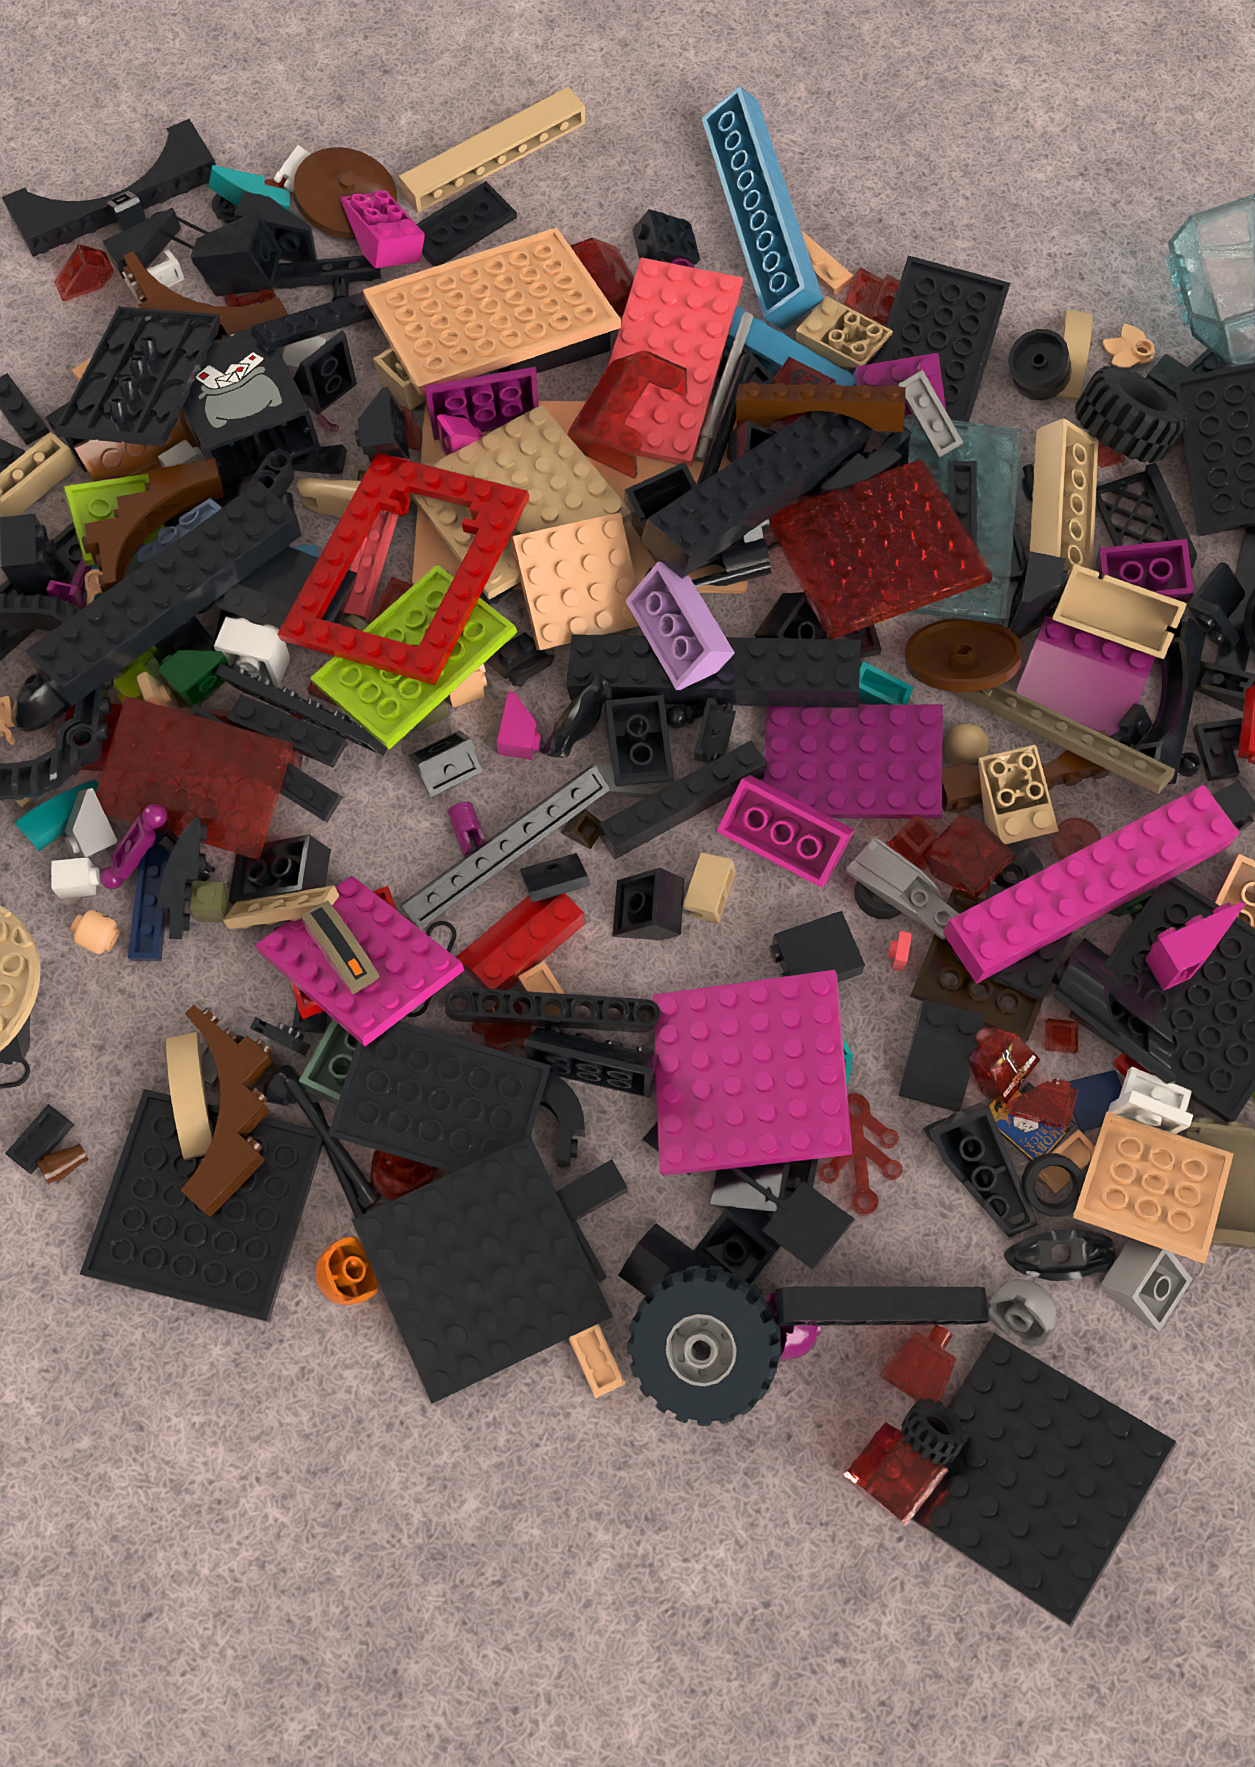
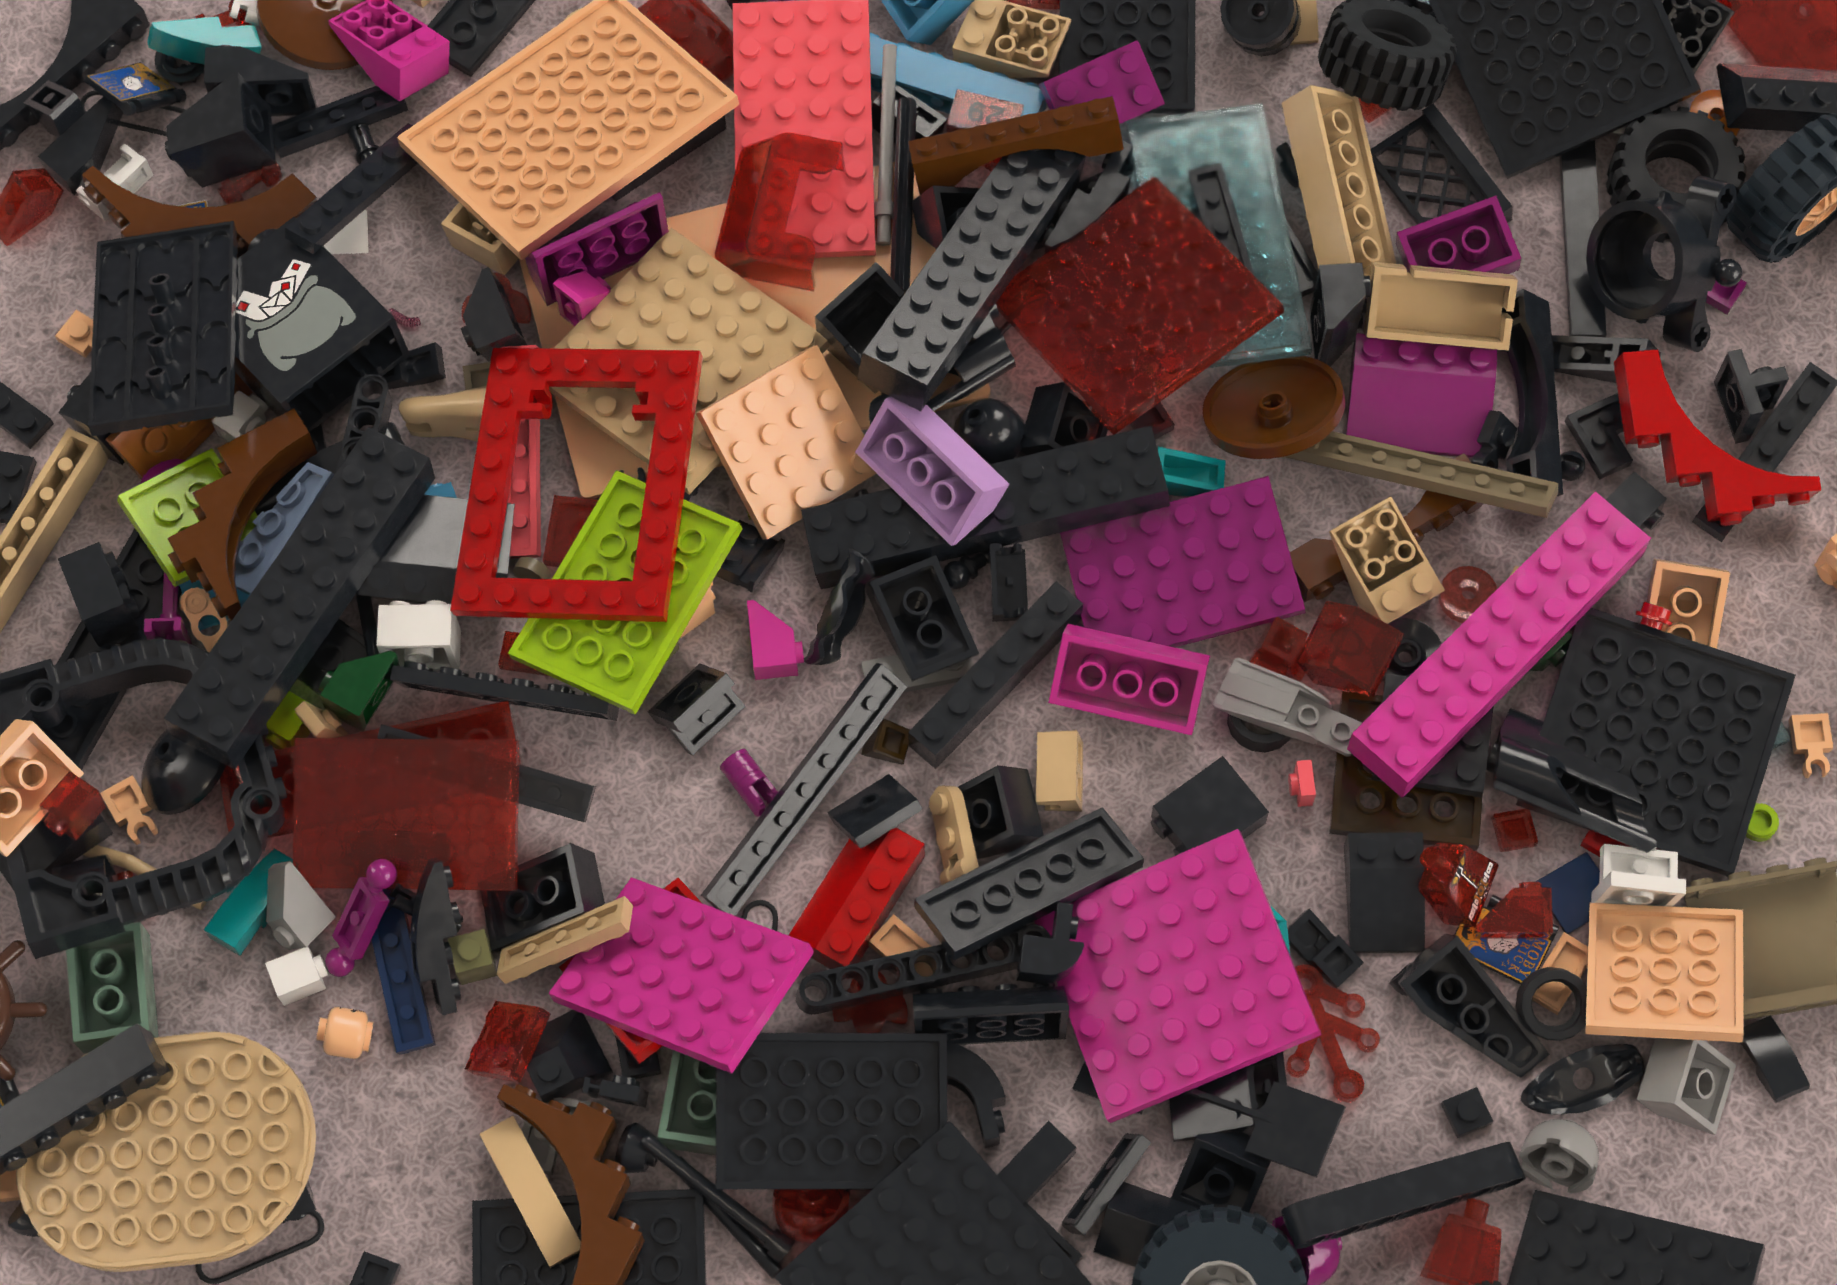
camera: 15 degrees left, 0 degrees up
(187, 212) = (135, 88): none -> piece
(212, 973) = (507, 1041): none -> clear red plate
(252, 994) = (566, 1056): none -> black slope
(306, 737) = (487, 721): black plate -> none
(326, 374) = (389, 258): black slope -> none
(340, 947) = (661, 967): dark tan slope -> none
(610, 914) = (952, 832): none -> tan plate
(643, 1223) = (1105, 1183): none -> black tile
(653, 1030) = (1053, 958): none -> black brick
(655, 966) = (1028, 883): none -> black plate
(737, 613) = (991, 429): none -> black cylinder
(877, 1086) = (1322, 949): none -> black slope
(930, 414) = (1150, 119): light grey plate -> none
(956, 1252) = (1467, 1112): none -> black plate
(965, 744) = (1307, 514): tan hair -> none
(1183, 951) = (1624, 696): dark pink slope -> none
(1215, 604) = (1550, 263): black bracket -> none
(1223, 895) = (1654, 616): none -> red plate
(1226, 1285) = (1774, 1059): none -> black slope

